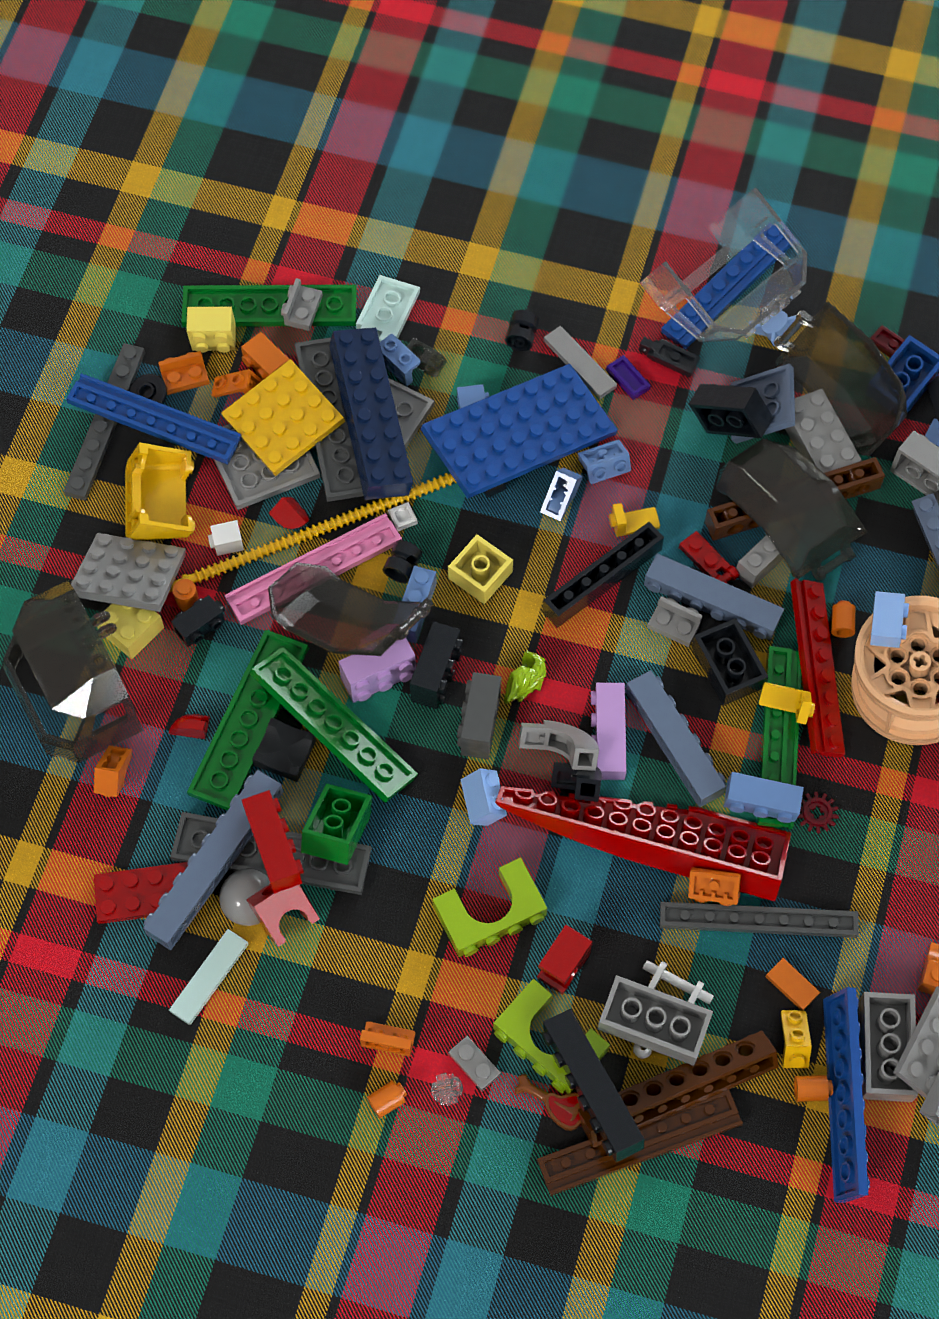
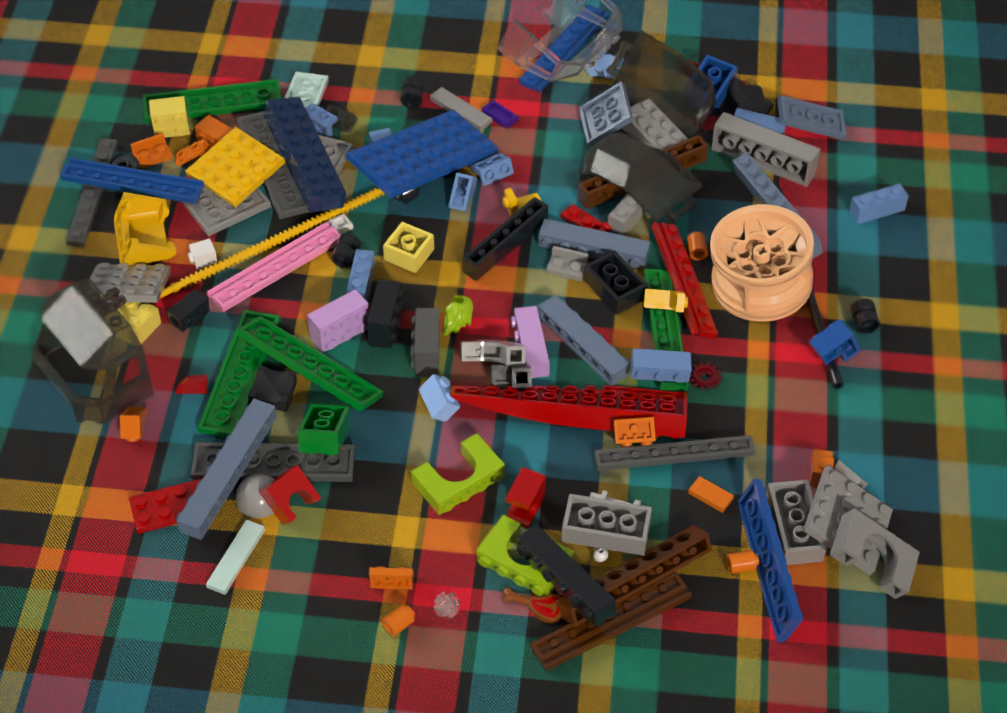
camera: 10 degrees left, 15 degrees down
(185, 594) = (174, 292): orange brick -> none
(272, 841) = (274, 440): red brick -> none
(289, 513) = (249, 232): red brick -> none
(301, 306) = (237, 95): light grey bracket -> none
(338, 615) = (286, 285): clear smoke windscreen -> none
(474, 1063) = (466, 586): light grey plate -> none
(670, 356) = (529, 96): black hinge -> none
(731, 410) = (583, 118): black brick -> none
(797, 1039) = (723, 531): yellow bracket -> none
(888, 619) = (731, 221): light blue brick -> none

